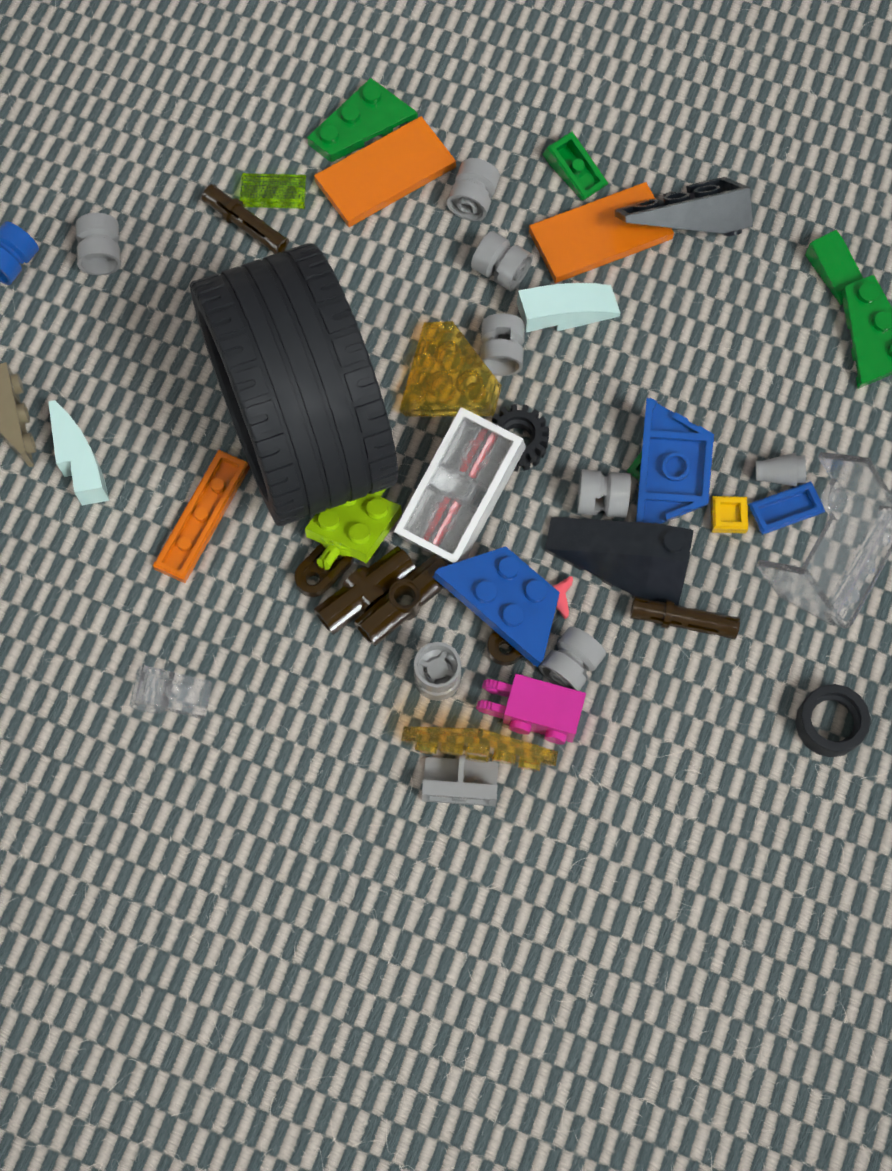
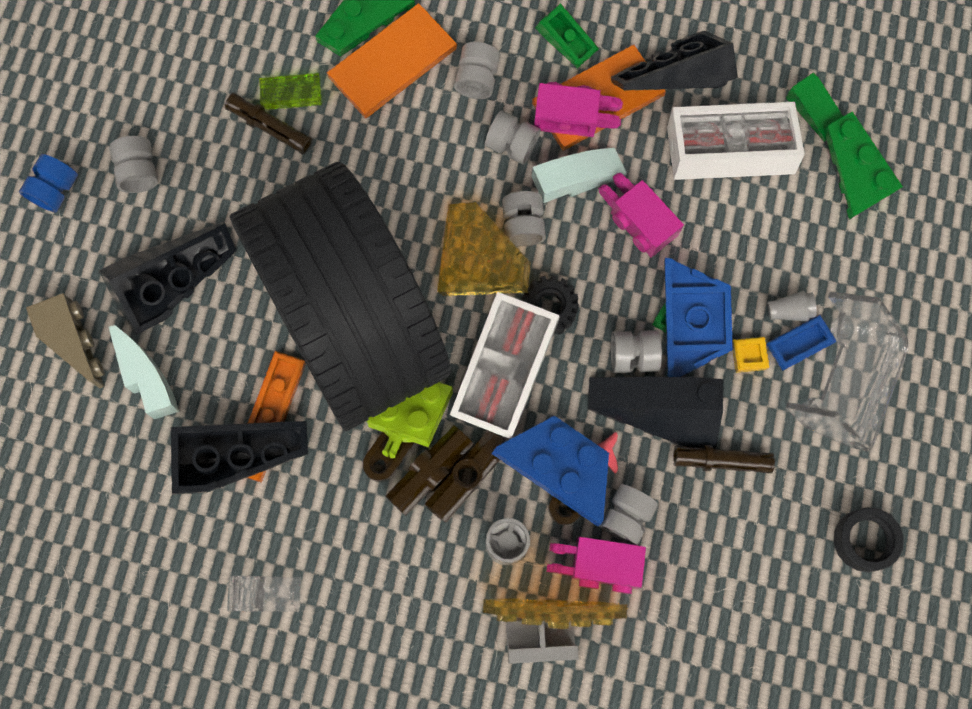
camera: 10 degrees left, 5 degrees up
(108, 361) = (160, 277): none -> black wedge
(152, 542) = (223, 454): none -> black wedge
(571, 239) = (574, 110): none -> dark pink hinge
(630, 356) = (642, 215): none -> dark pink hinge
(741, 290) = (735, 140): none -> brick

